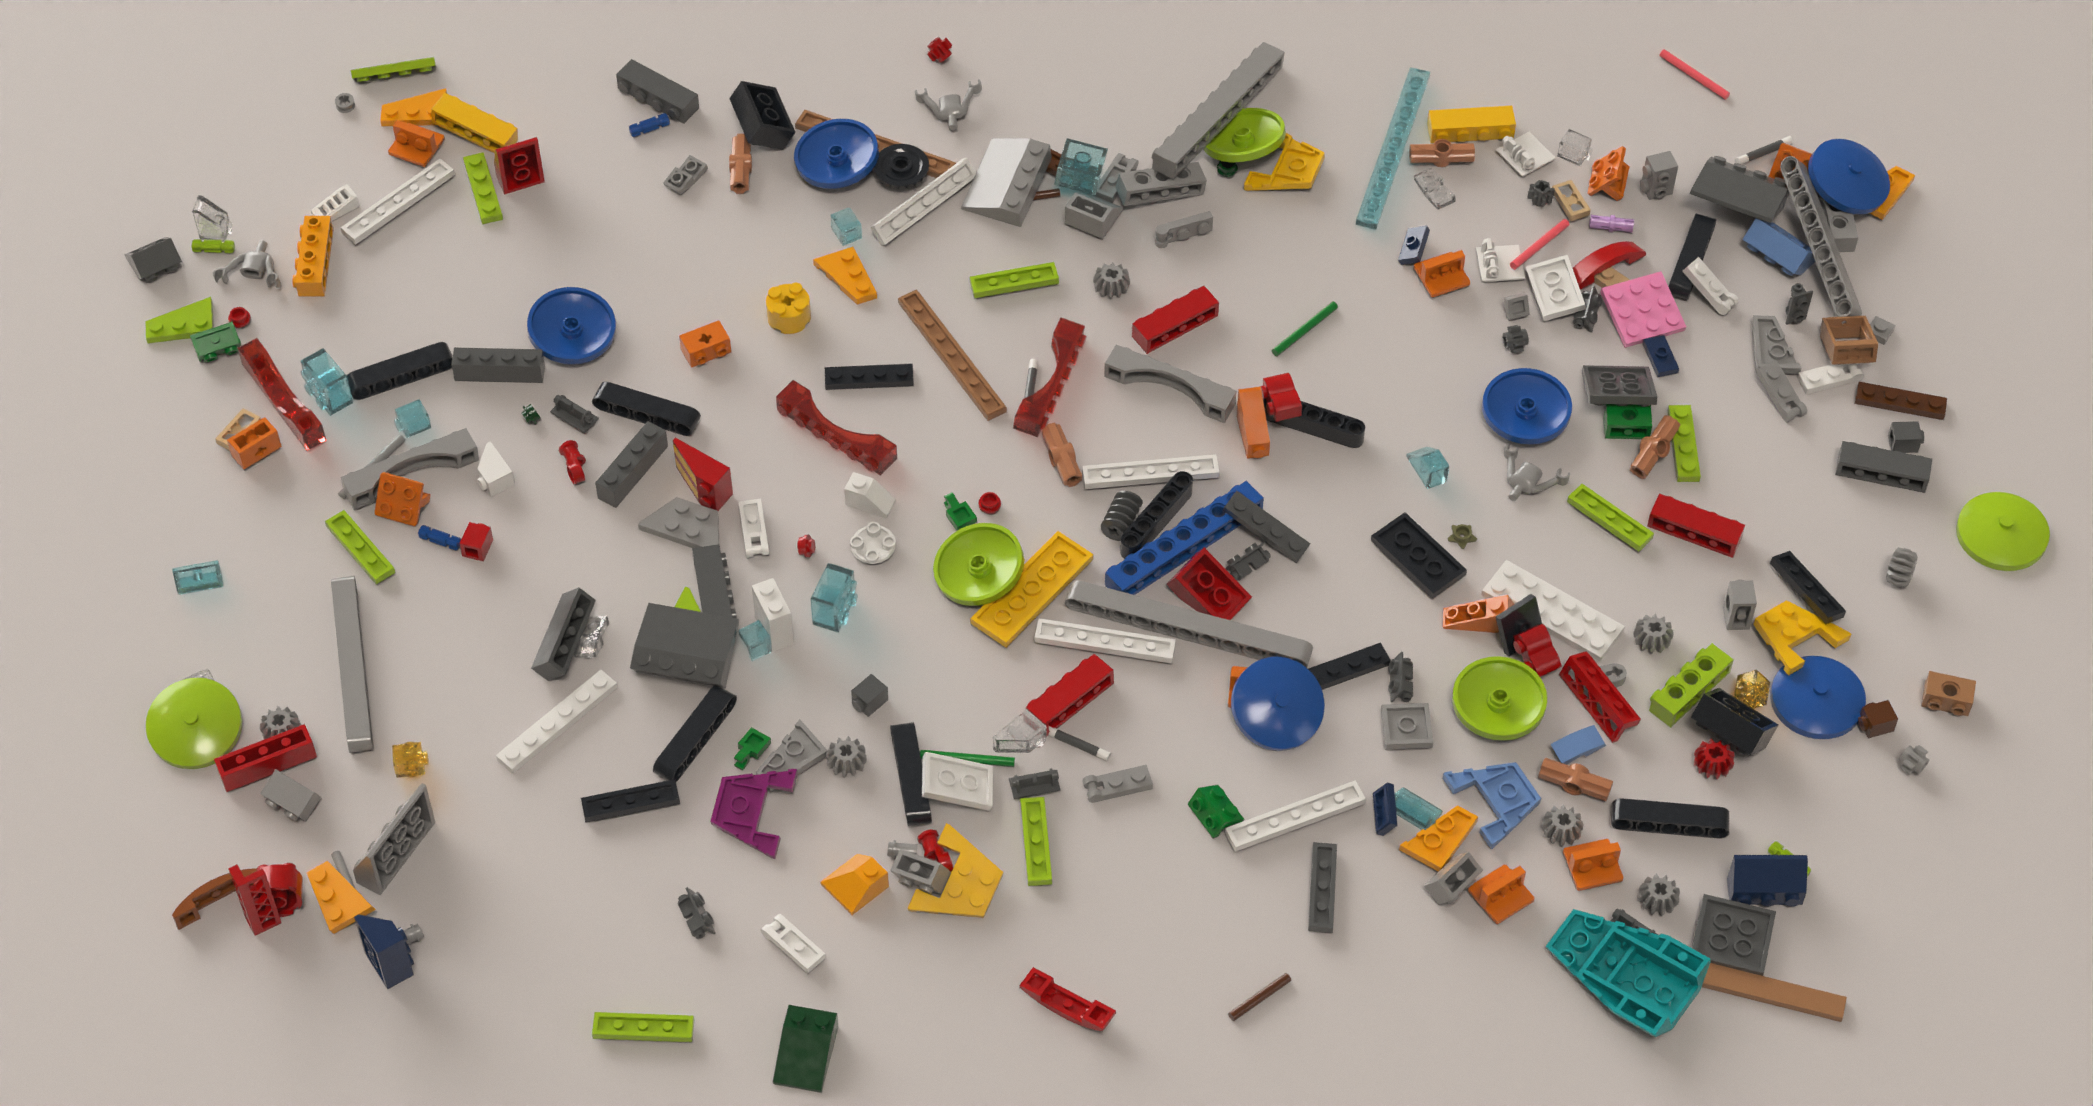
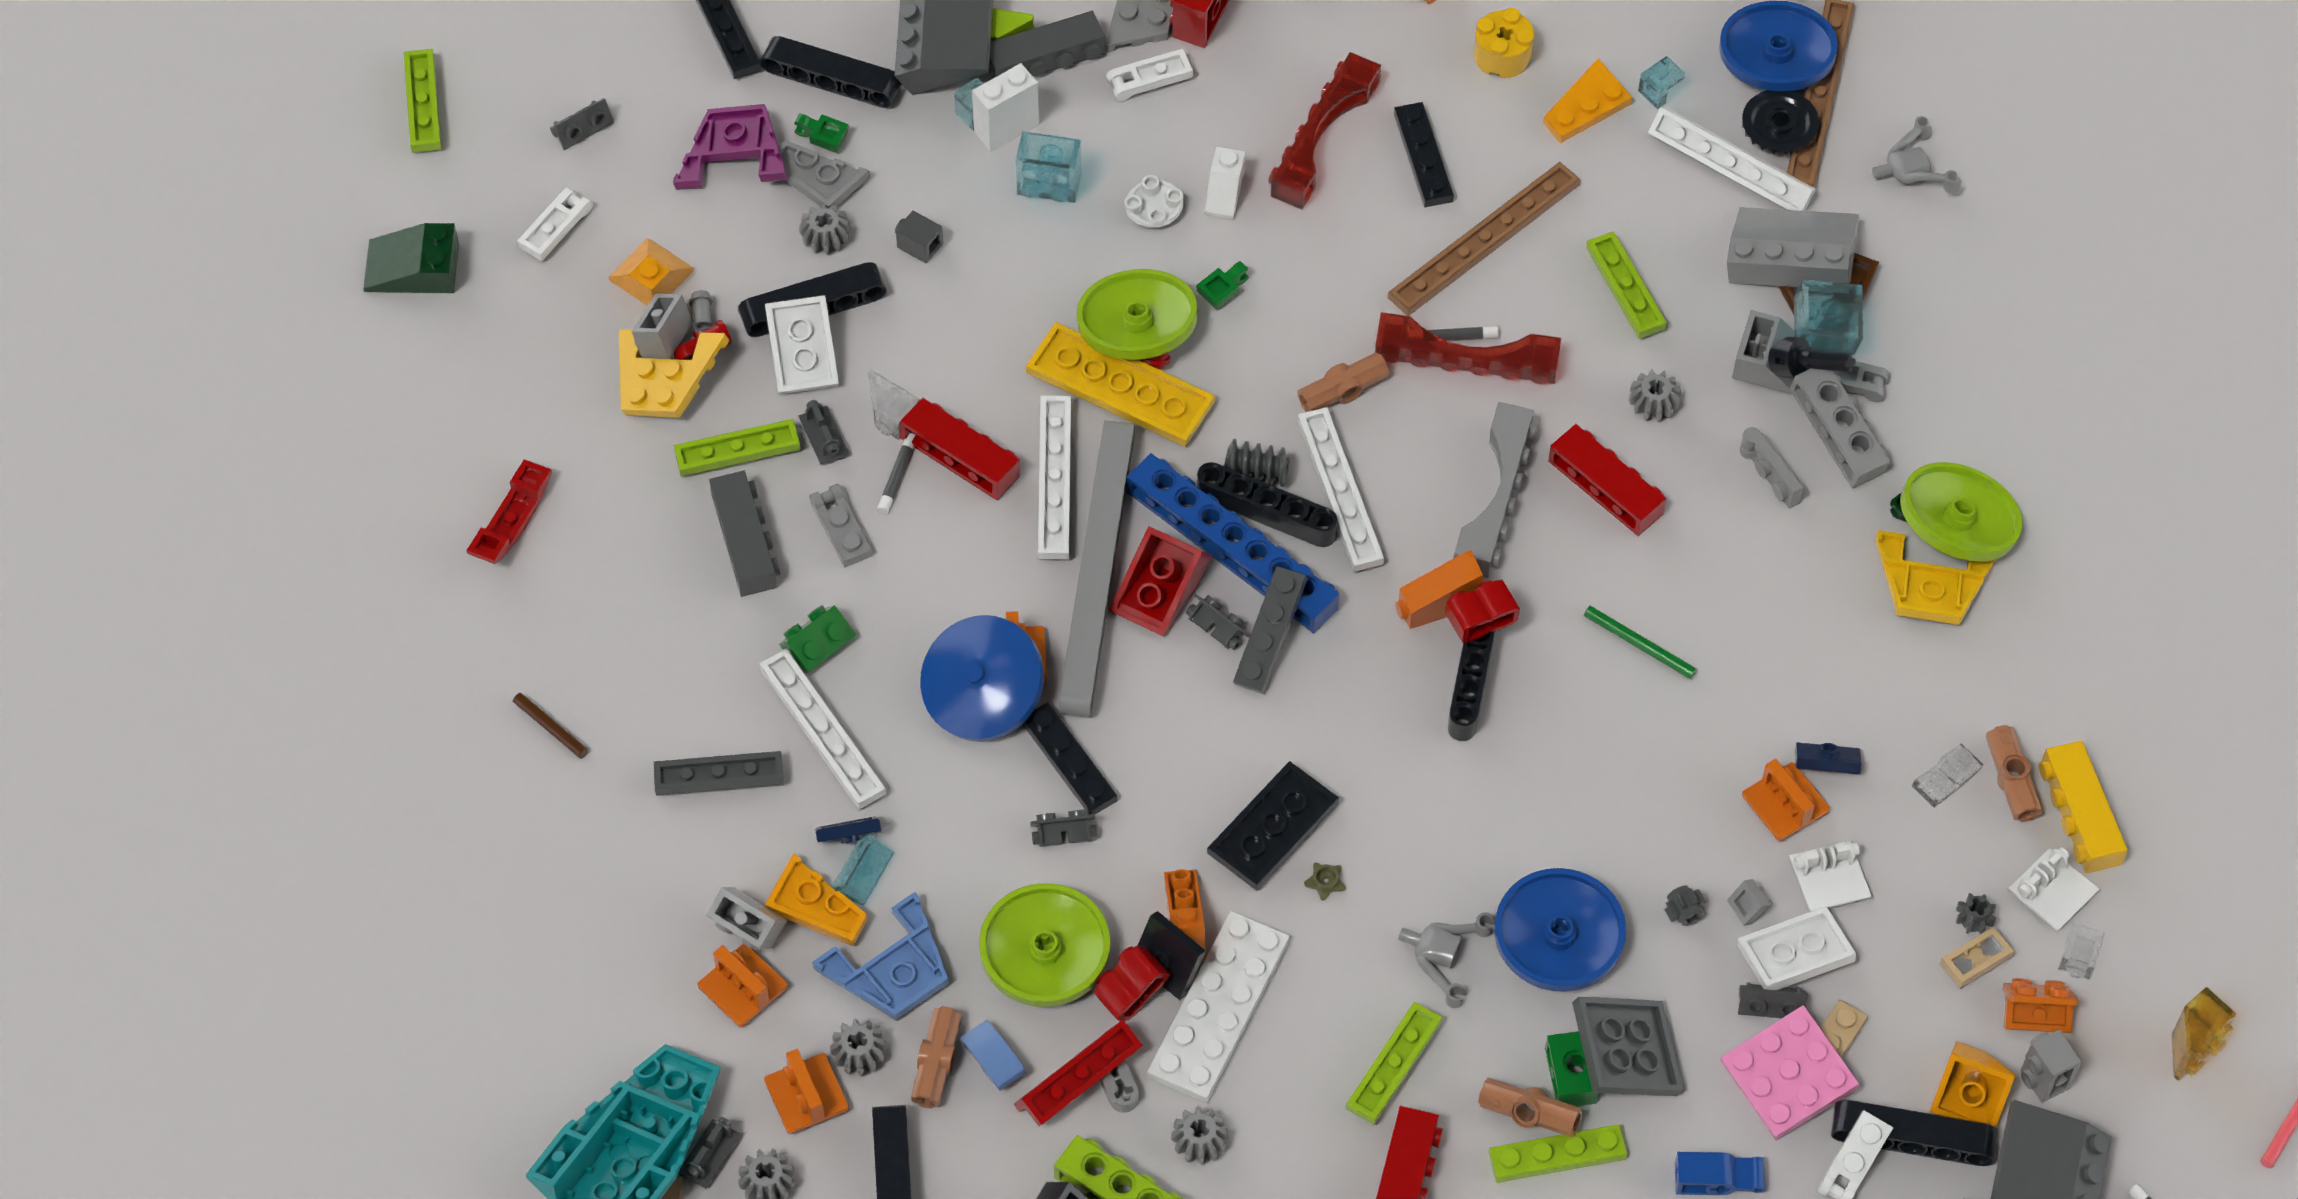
camera: 80 degrees right, 5 degrees up
(806, 545) = (1133, 132): red plate -> none
(939, 49) = (2007, 131): red gear -> none
(983, 759) = (851, 358): green bar -> none
(989, 503) = (1248, 317): red plate -> none
(1110, 190) = (1800, 358): none -> black piece
(1116, 844) = (743, 533): none -> dark grey brick
(1217, 110) = (1993, 471): light grey brick -> none
(1392, 148) = (2009, 710): clear light blue plate -> none
(1407, 726) = (986, 842): light grey plate -> none
(1429, 466) = (1430, 820): clear light blue slope -> none
(1539, 244) = (1879, 923): coral bar -> none
(1604, 259) = (1873, 1012): red slope -> none
(1611, 223) = (1949, 1016): lavender pin -> none
(1645, 101) = (2200, 1032): none -> clear yellow slope
(1660, 356) = (1713, 1108): dark blue plate -> none
(1664, 220) = (1973, 1086): none -> light orange slope
(1710, 361) = (1717, 1173): none -> blue piece

